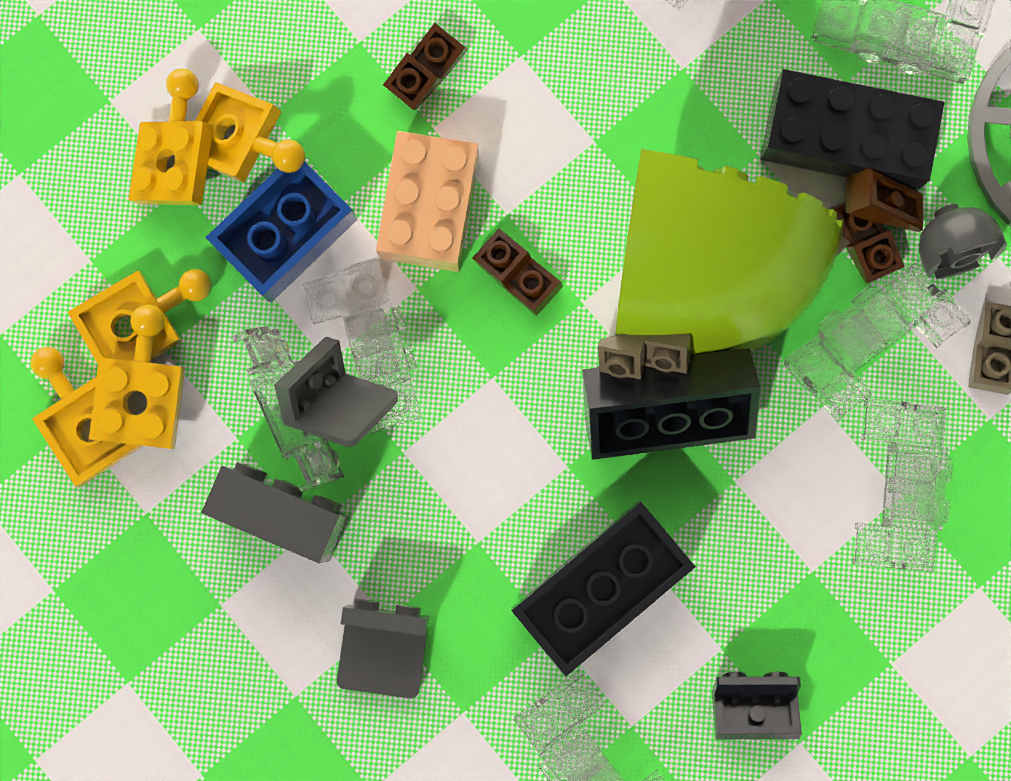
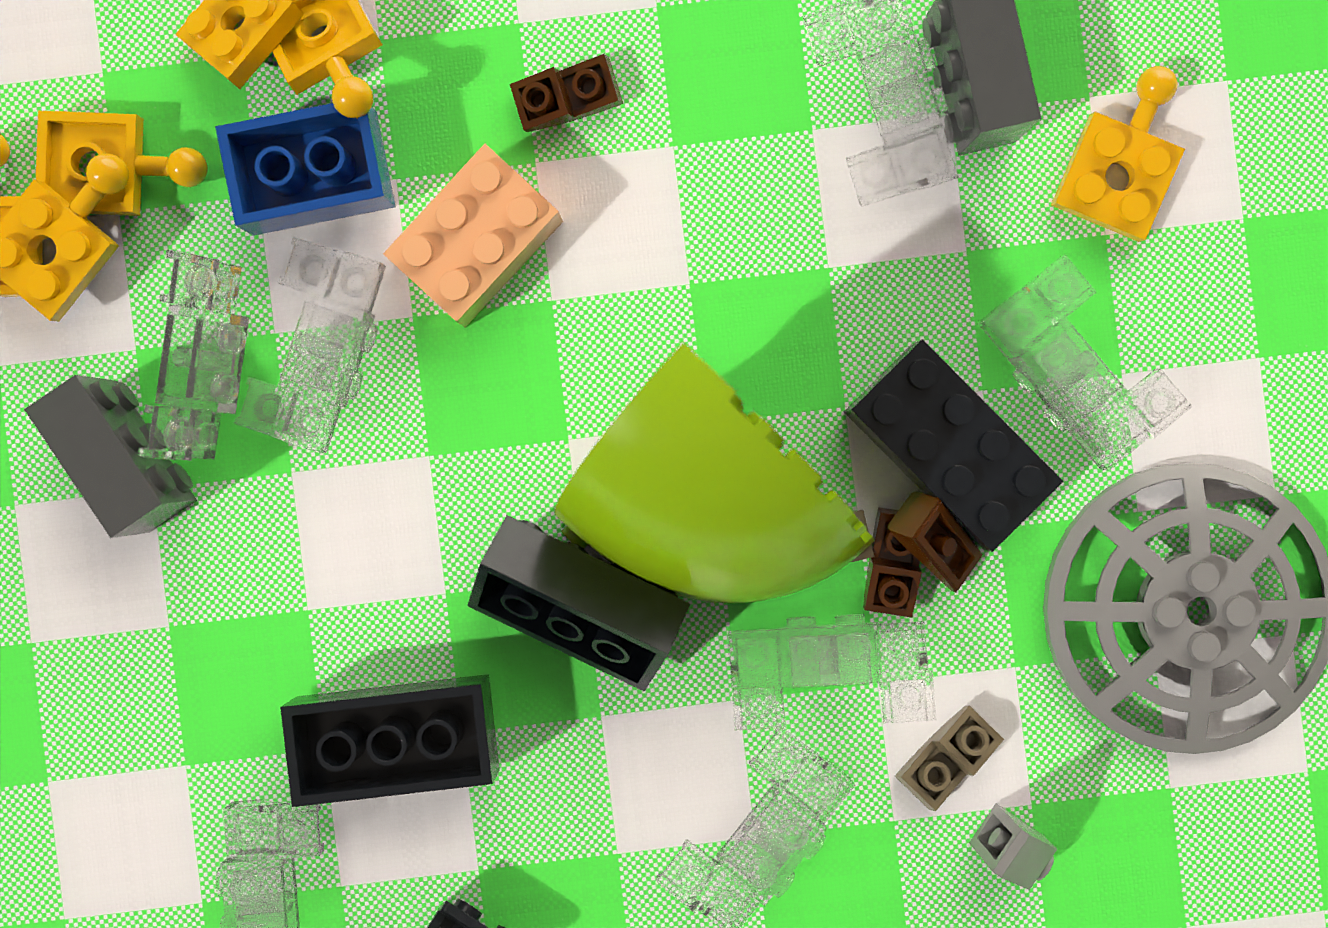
camera: 25 degrees right, 5 degrees up
(327, 401) = (229, 378): dark grey bracket -> none
(382, 649) = (140, 654): dark grey bracket -> none
(517, 272) = (521, 367): reddish brown slope -> none
(629, 354) = (559, 535): dark tan slope -> none
(958, 240) = (982, 628): dark grey cylinder -> none

